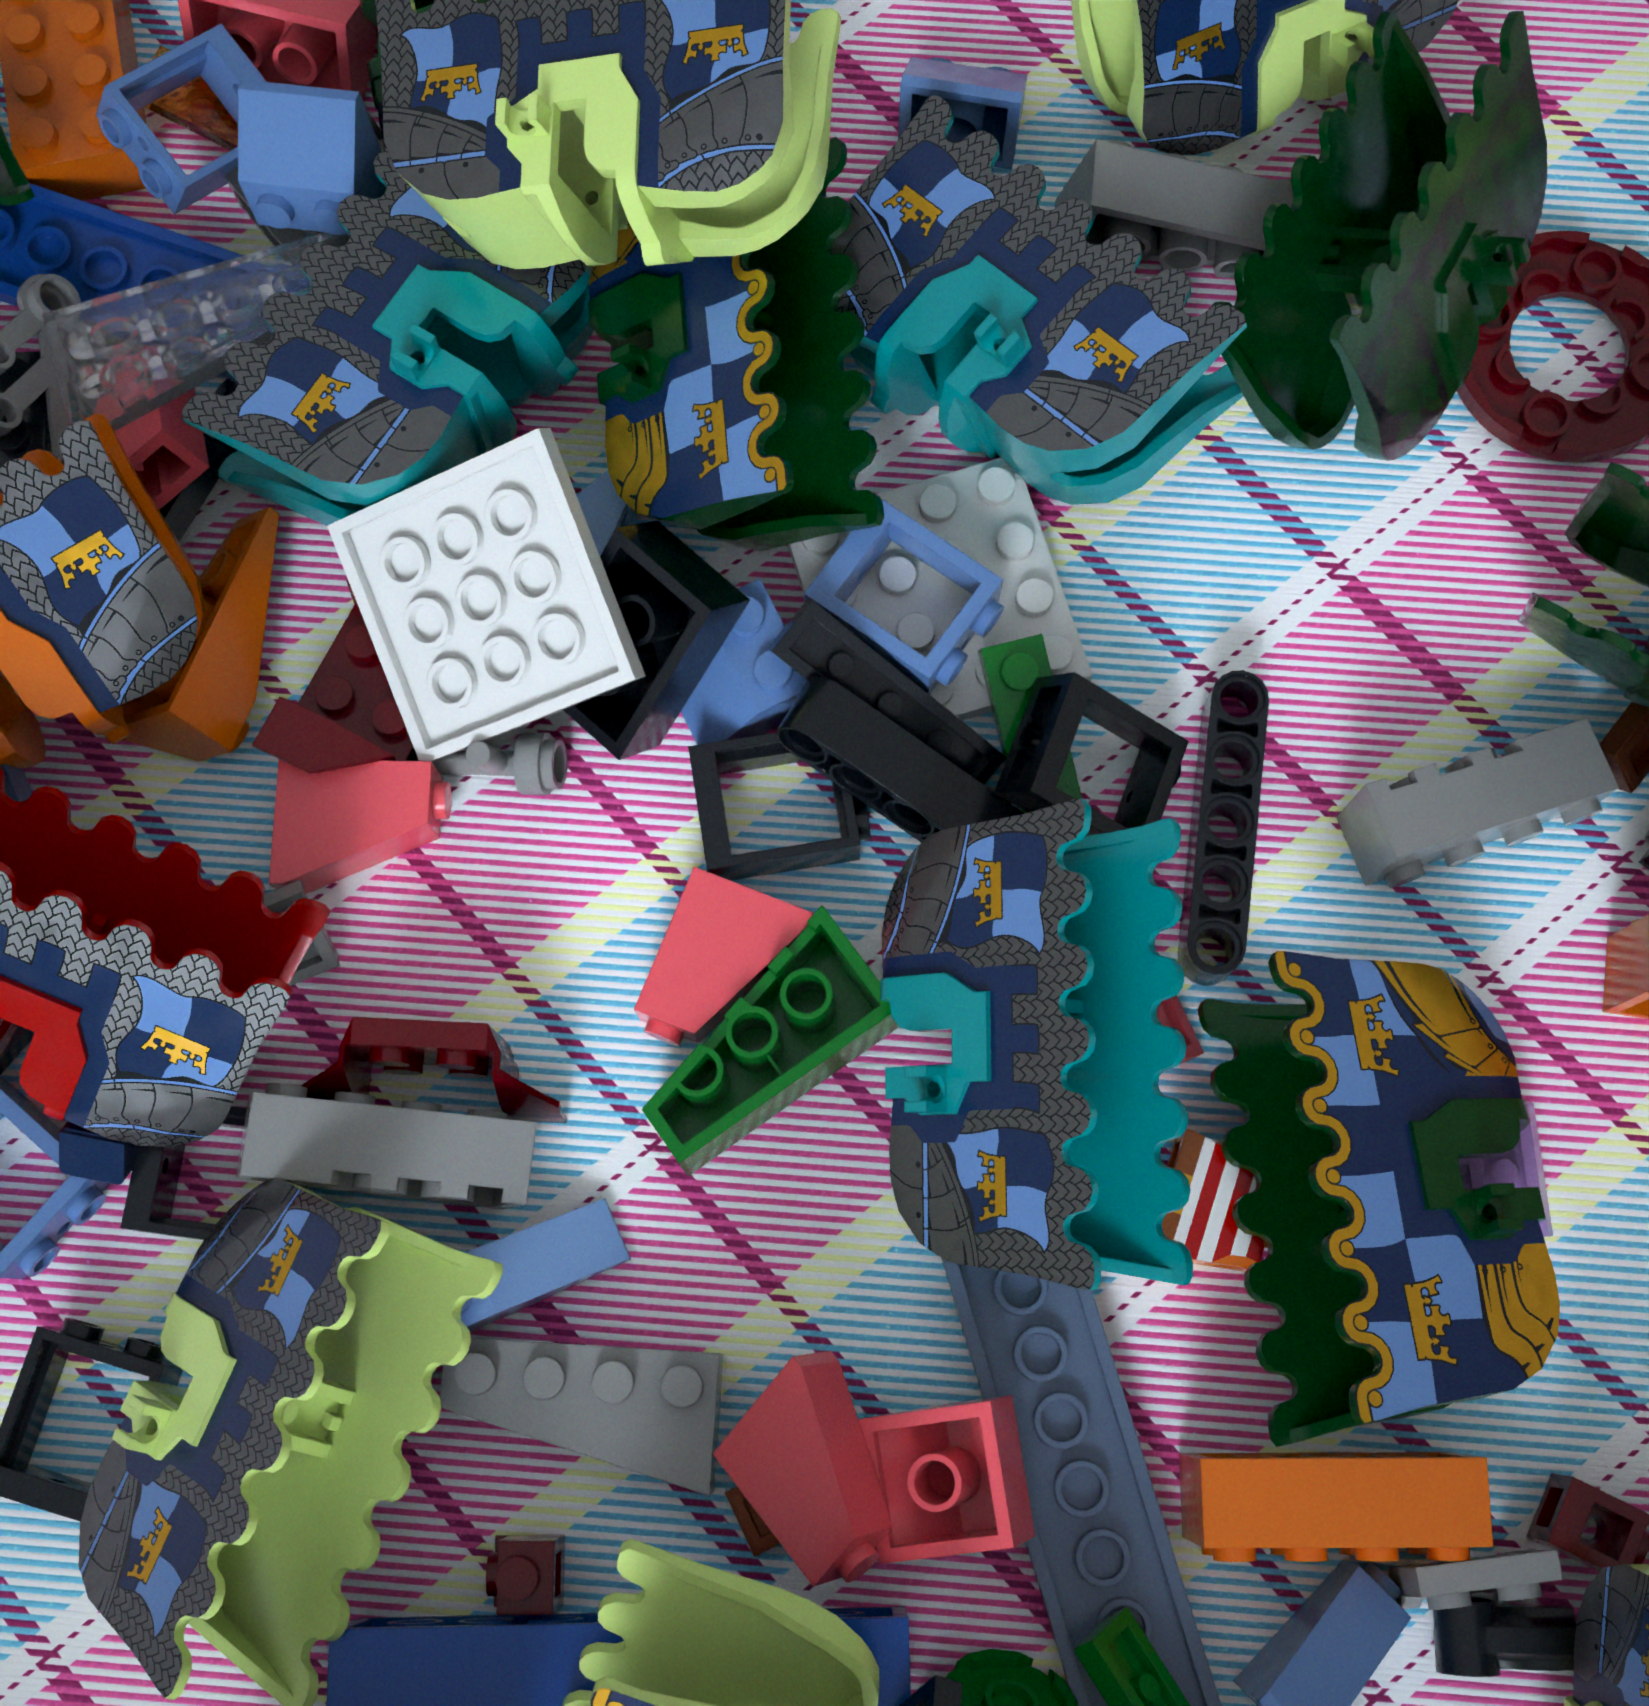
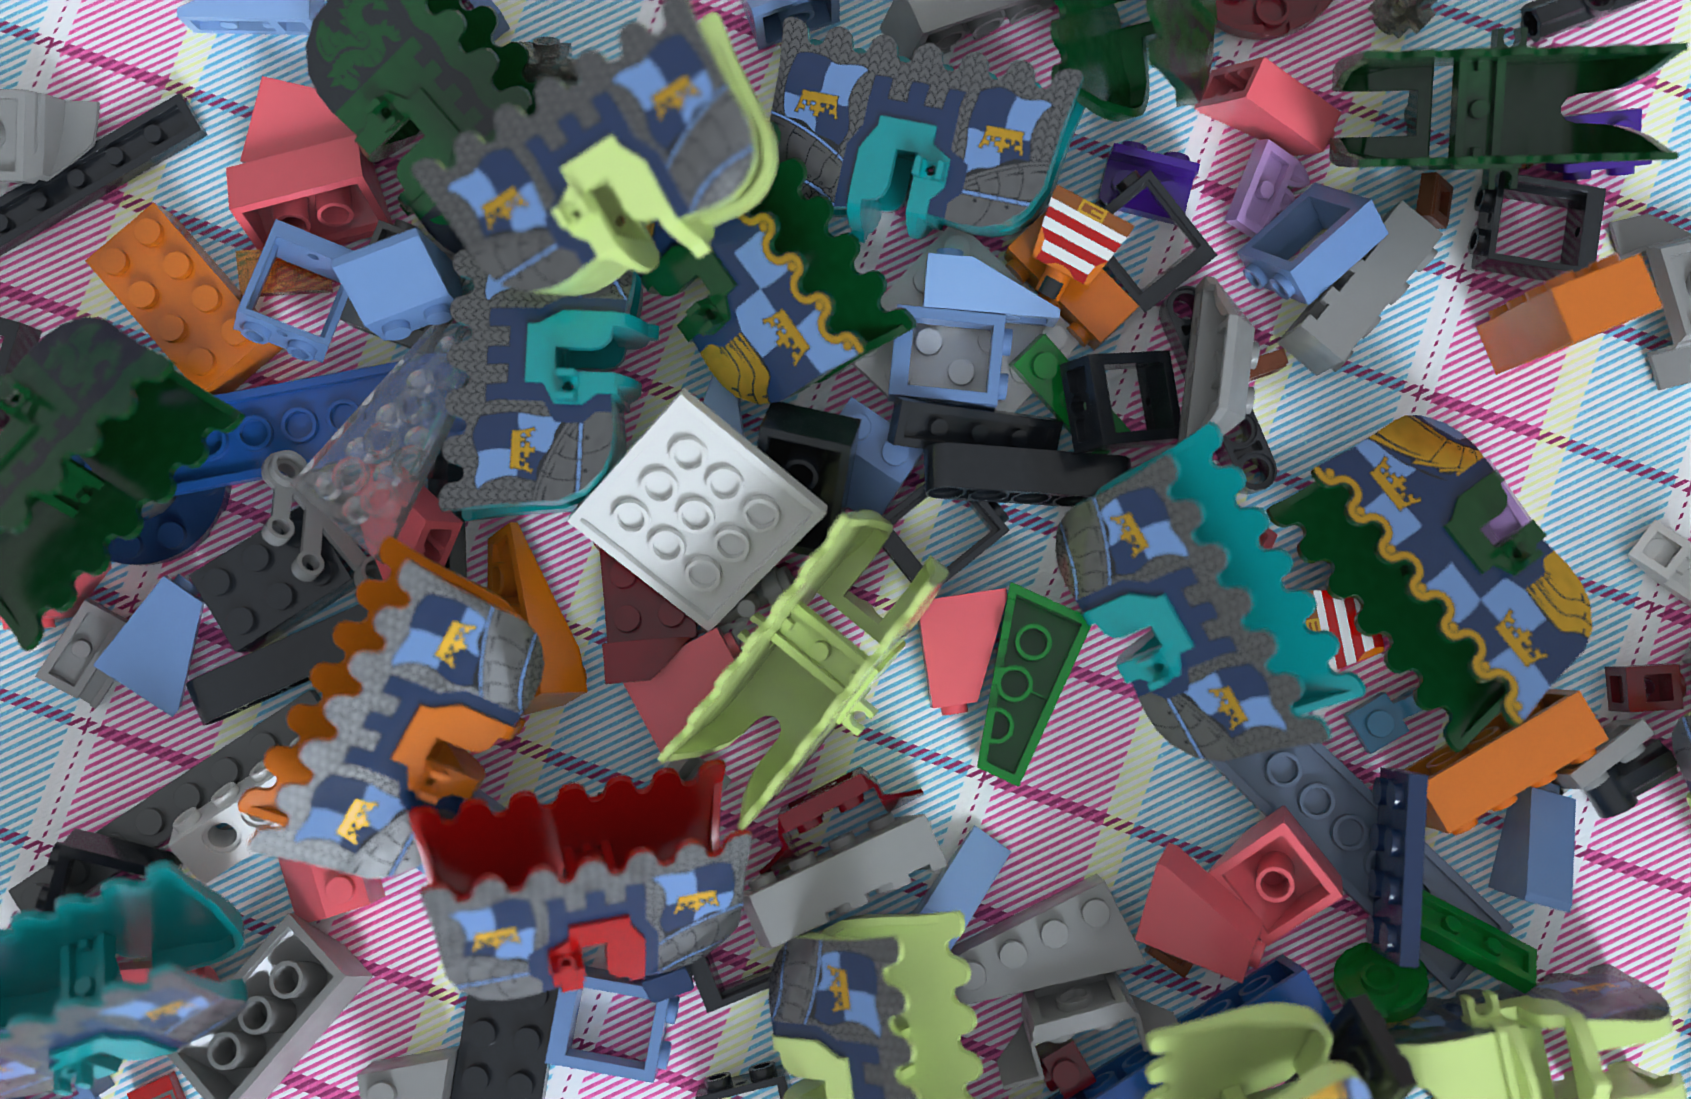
camera: 30 degrees left, 10 degrees up
(488, 848) = (804, 666): none -> yellowish green animal
(568, 1492) = (1070, 1008): none -> light grey piece
(979, 520) = (973, 286): none -> light blue slope
(1098, 1579) = (1398, 866): none -> dark blue plate
(1111, 597) = (1090, 310): none -> orange brick
(1139, 537) = (1075, 241): none -> torso
(1206, 1367) = (1381, 720): none -> dark azure plate
(1237, 782) = (1217, 362): none -> light grey wedge
(1257, 654) = (1181, 269): none -> black window
(1277, 536) = (1171, 169): none -> dark purple bracket
(1294, 827) = (1269, 364): none -> copper tile
(1419, 624) = (1265, 188): none -> lavender plate
(1441, 707) = (1351, 233): none -> medium blue window
(1480, 525) = (1269, 105): none -> coral slope

